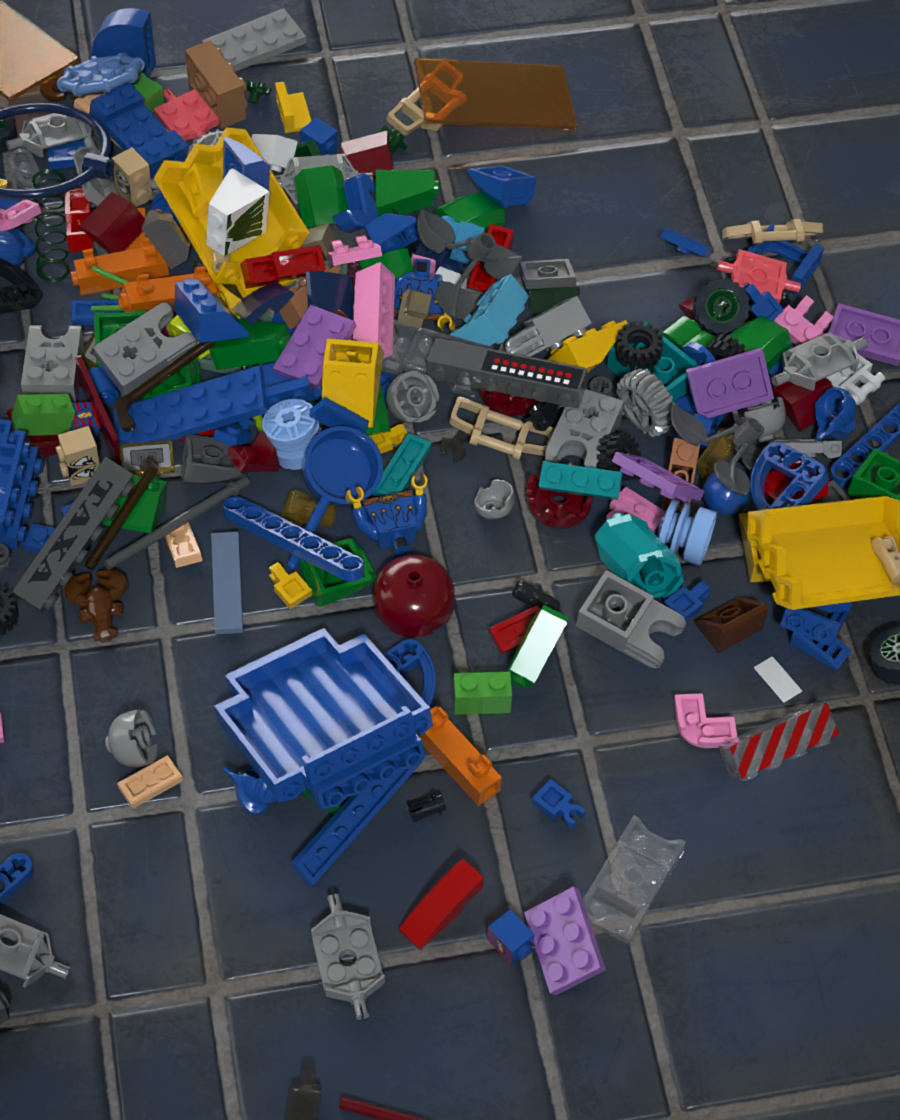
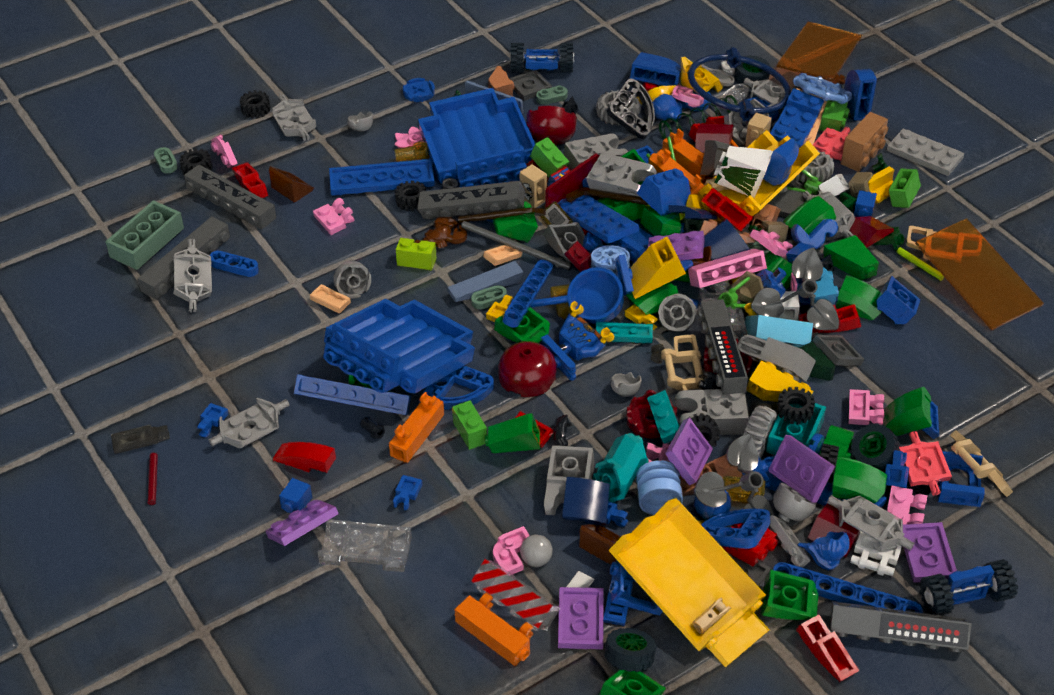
camera: 70 degrees right, 10 degrees down
(121, 651) = (416, 255): none -> lime brick
(255, 592) = (486, 297): none -> sand green plate
(284, 122) = (859, 182): none -> dark tan panel
(310, 1001) = (210, 418): none -> blue plate
(318, 88) = (904, 188): none -> bright green brick
(428, 330) = (730, 297): none -> bright green plant
(434, 548) = (563, 362): none -> blue hinge
(441, 138) = (921, 264): none -> lime bar
(640, 296) = (860, 407): none -> bright pink plate
(675, 612) = (586, 500): none -> dark blue slope
(676, 257) = (909, 412): none -> green slope
(718, 694) = (536, 550): none -> light grey hair
(816, 784) = (493, 630): none -> orange brick
(825, 681) = (580, 618): none -> medium lavender plate

